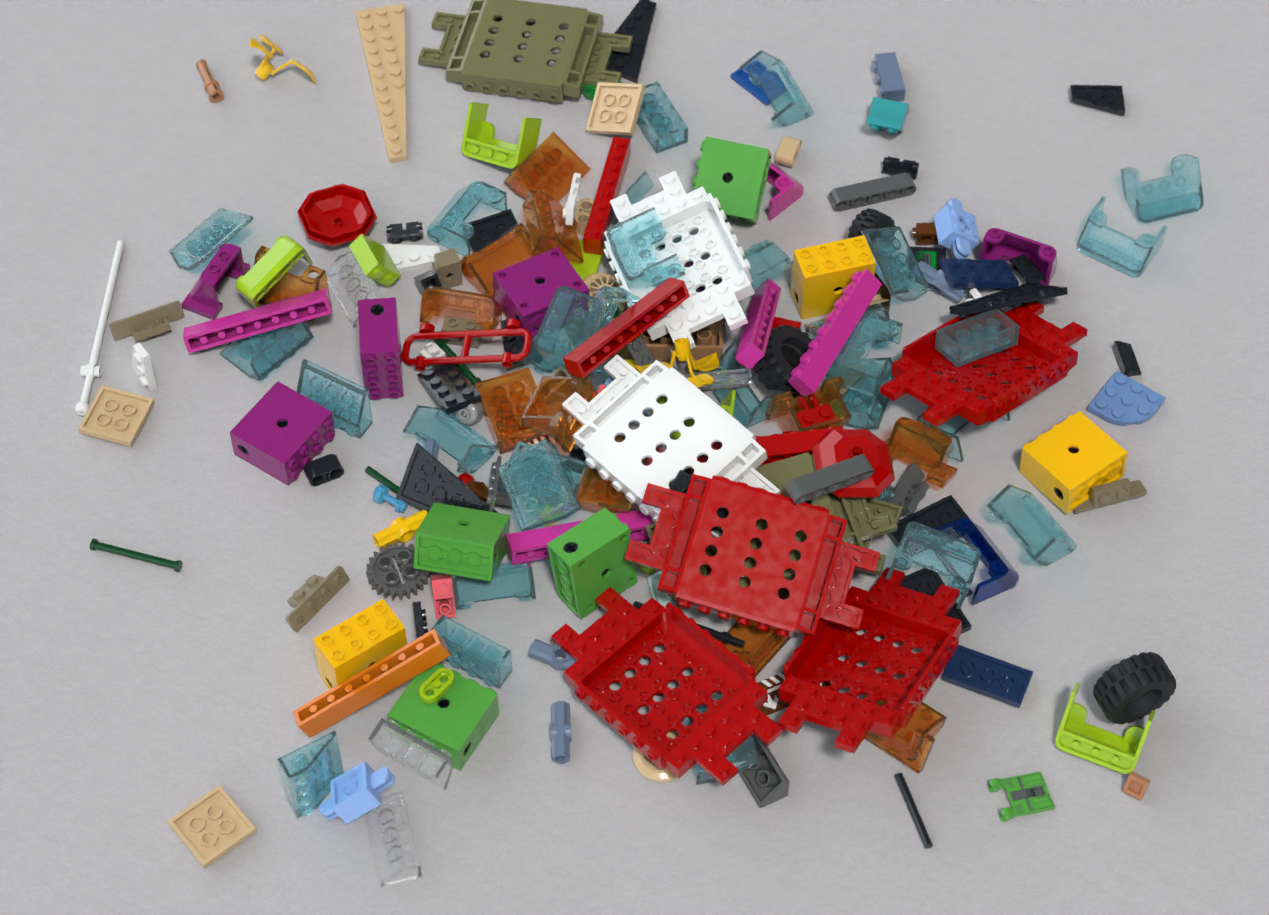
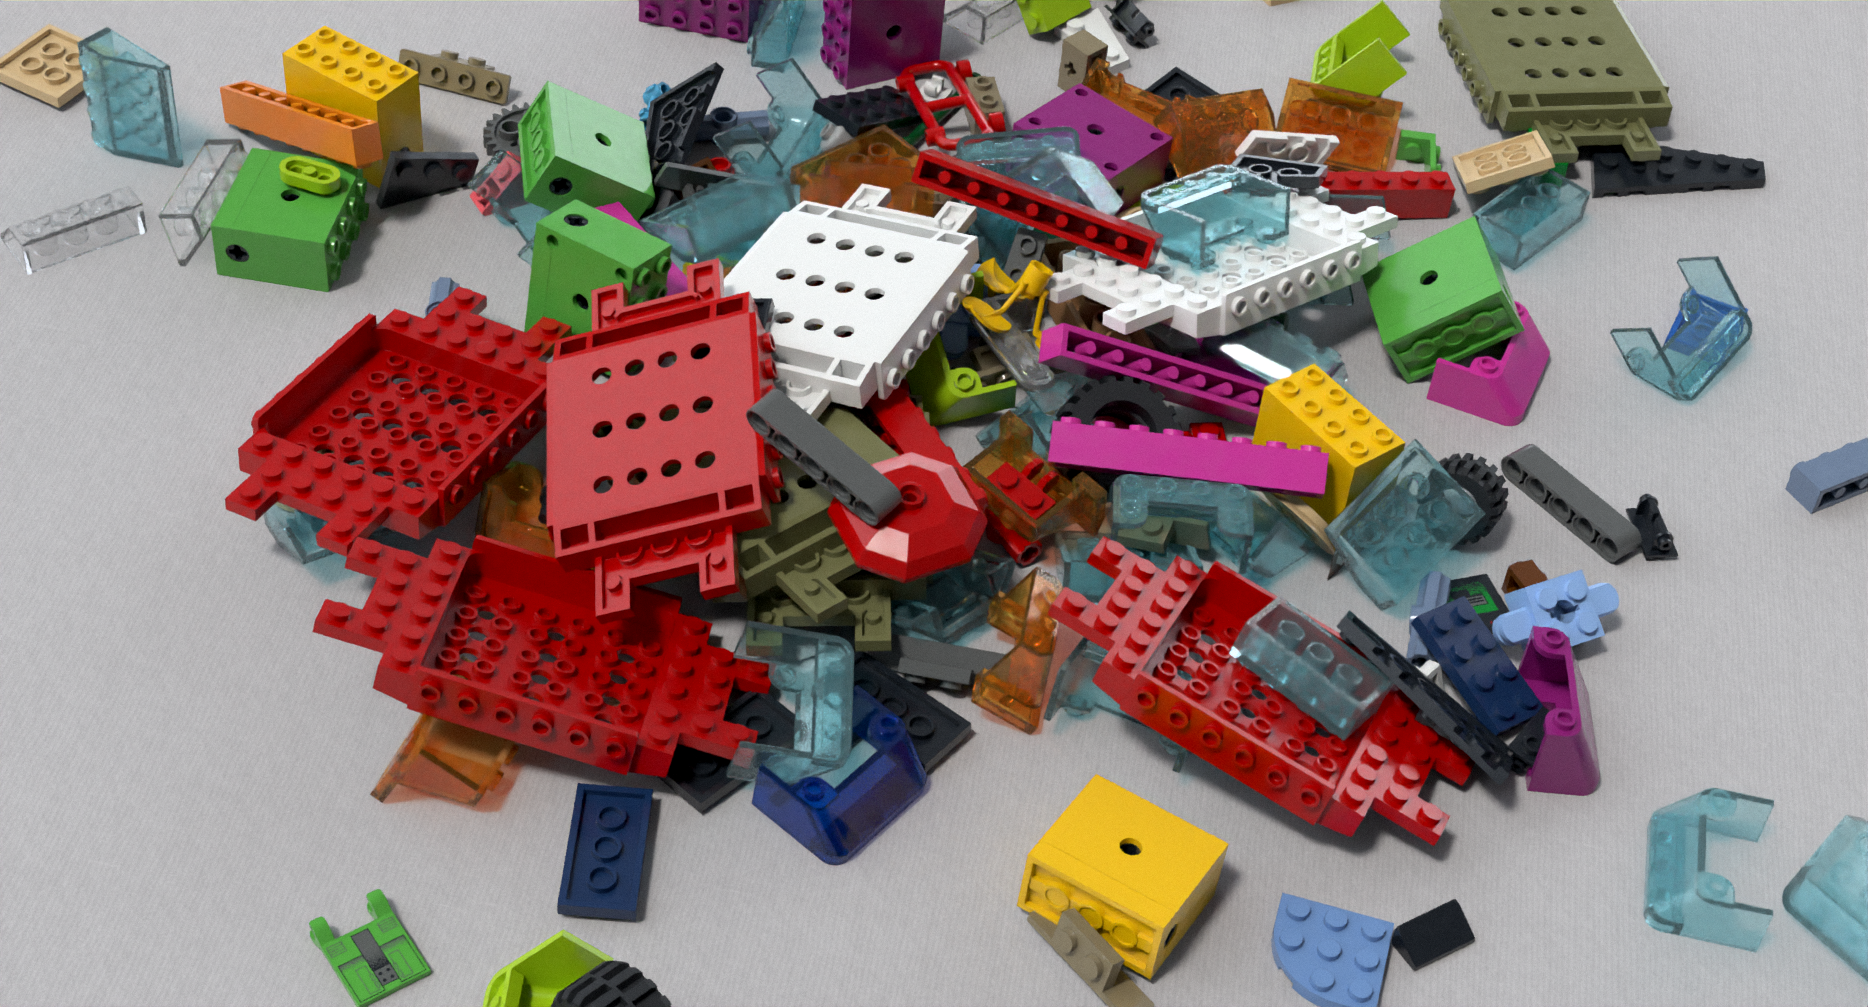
camera: 65 degrees right, 10 degrees down
(323, 470) = (673, 37): black beam -> none
(356, 792) = (126, 161): light blue brick -> none
(427, 279) = (1044, 56): black brick -> none
(449, 225) = (1197, 57): clear light blue windscreen -> none
(475, 653) = (407, 223): clear light blue brick -> none
(486, 308) = (1017, 75): clear orange windscreen -> none
(561, 732) = (296, 353): sand blue piece -> none
(581, 138) = (1420, 148): none -> bright green bracket
(609, 211) = (1285, 172): none -> black wing
(765, 780) = (303, 595): dark grey slope -> none
(788, 151) = (1579, 383): tan beam -> none
(887, 115) = (1745, 481): teal bracket -> none
(913, 810) = (292, 803): black bar -> none
(1031, 522) = (961, 854): clear light blue windscreen -> none

